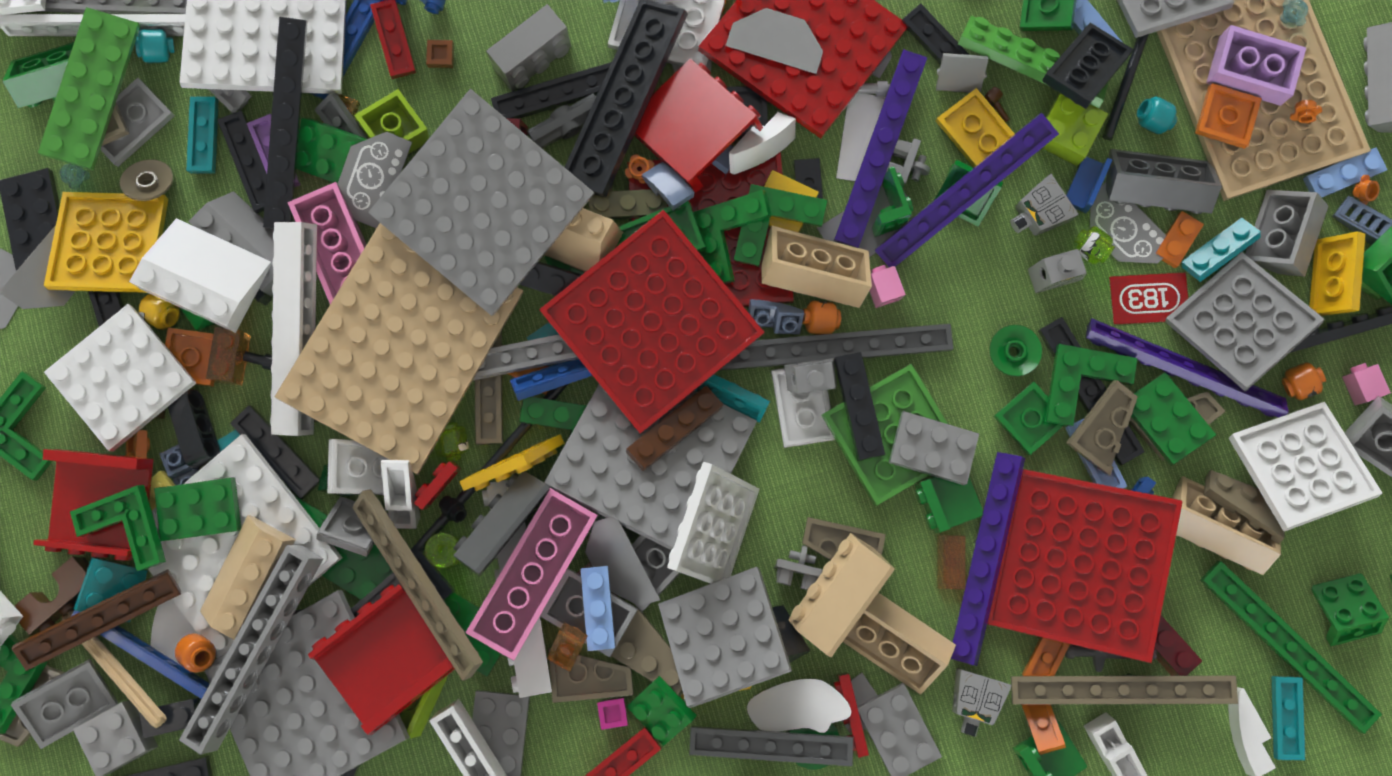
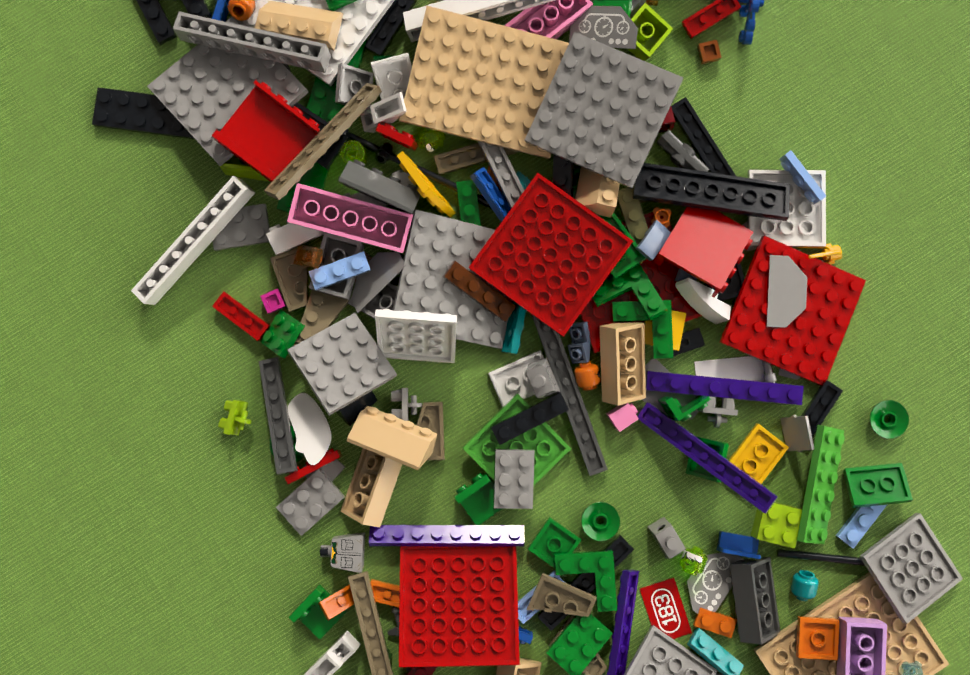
camera: 75 degrees right, 5 degrees up
(529, 48) = (729, 114): light grey brick -> none
(950, 562) = (437, 510): clear orange plate -> none
(993, 97) = (784, 461): reddish brown hand -> none
(1043, 208) = (711, 517): light grey torso -> none
(1087, 65) = (826, 524): black plate -> none

